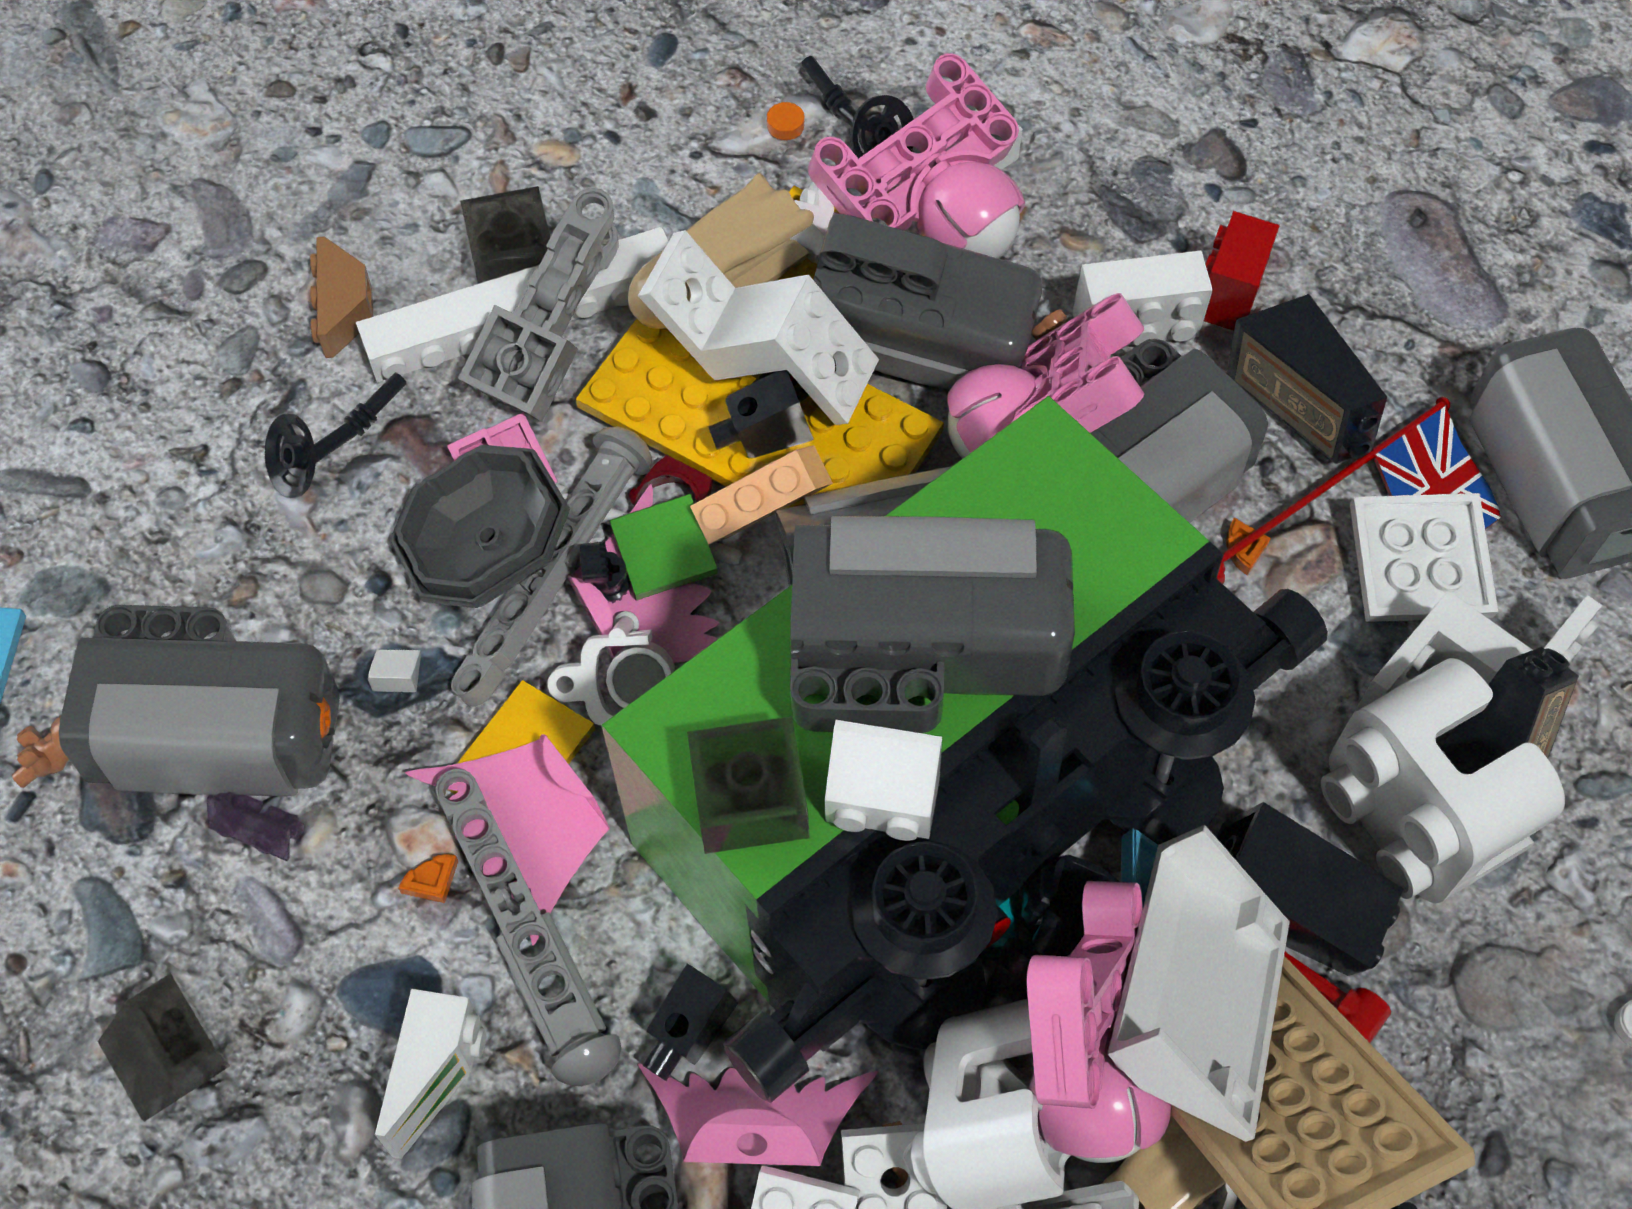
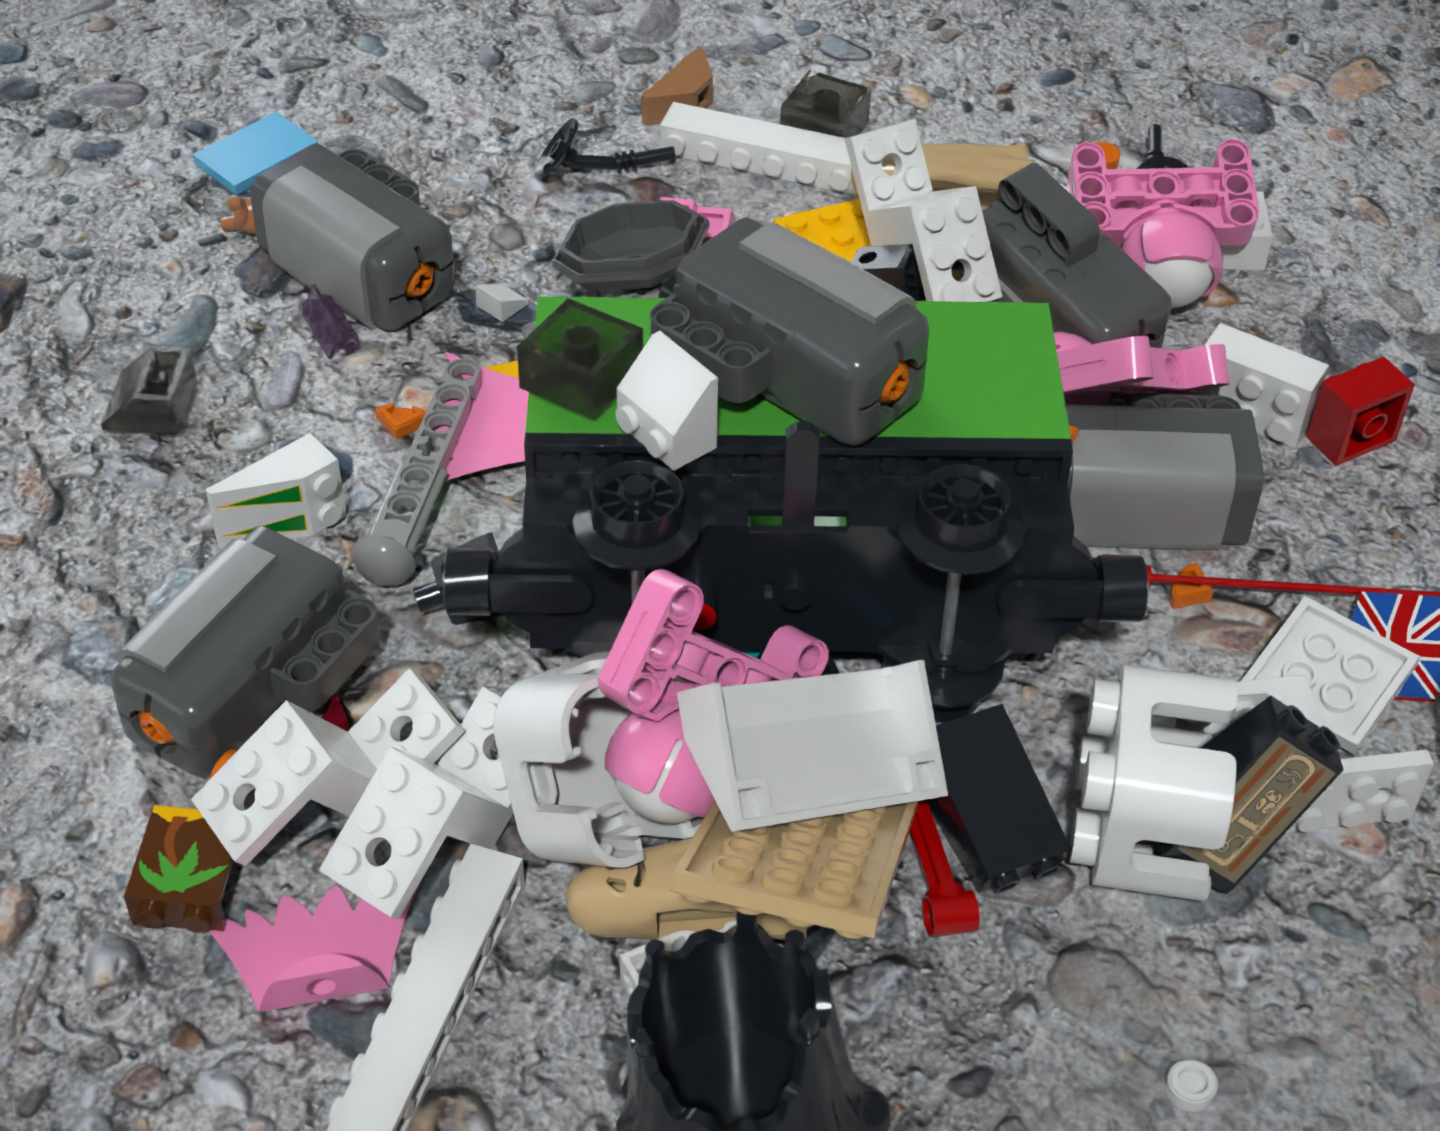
camera: 40 degrees right, 15 degrees down
(523, 352) = (764, 169): light grey brick -> none
(744, 1129) = (440, 657): bright pink piece -> none
(1308, 377) = (1342, 497): black slope -> none

